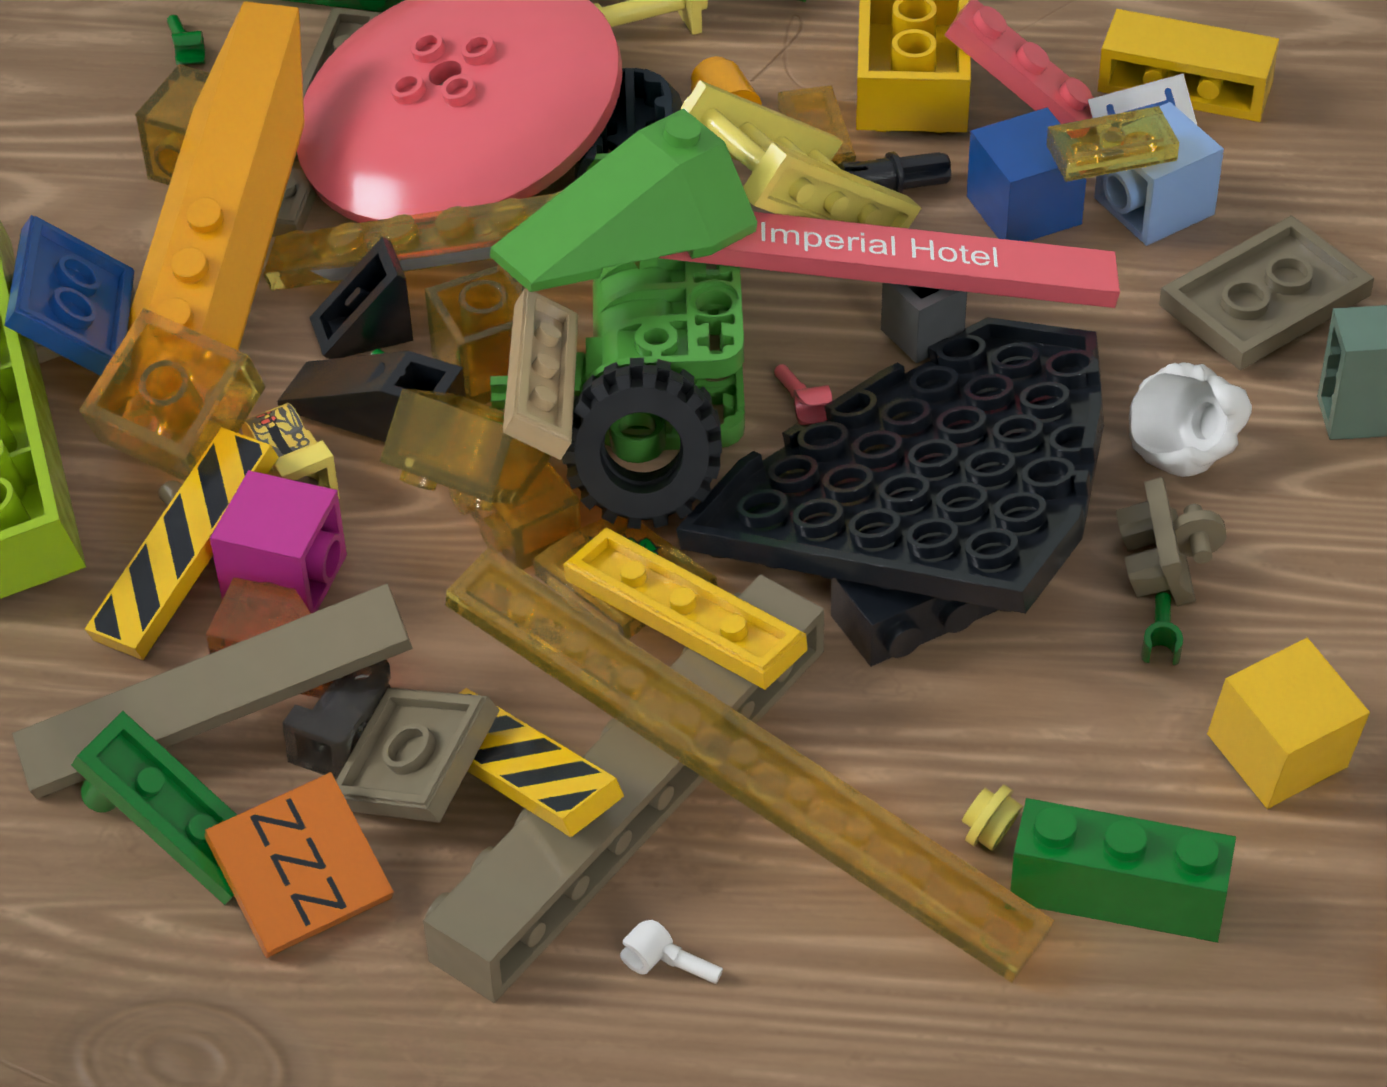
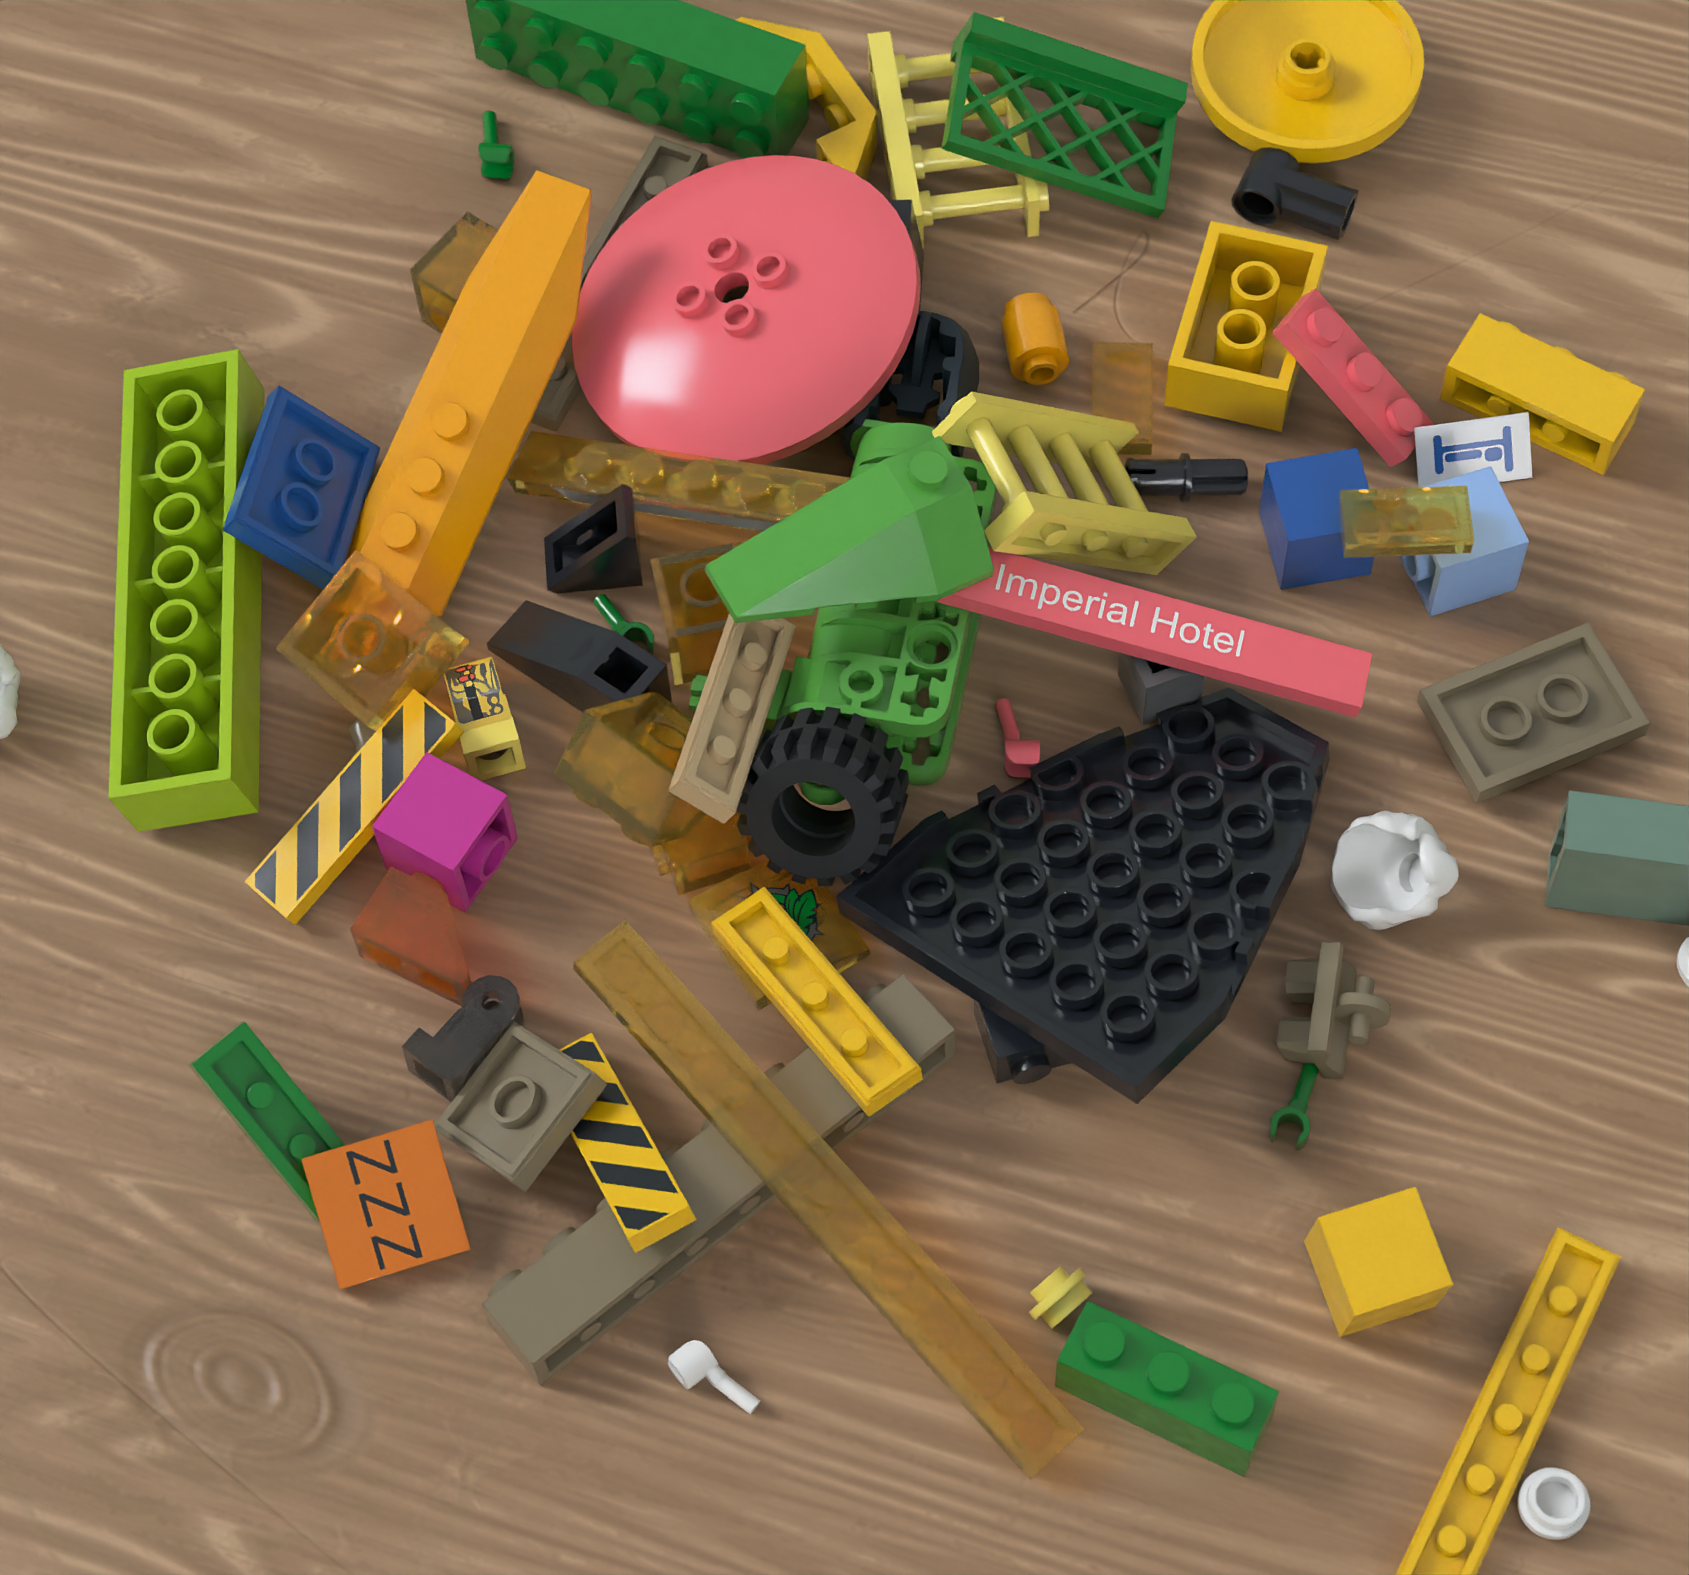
camera: 15 degrees right, 15 degrees up
(222, 684) = (349, 992): dark tan tile -> none

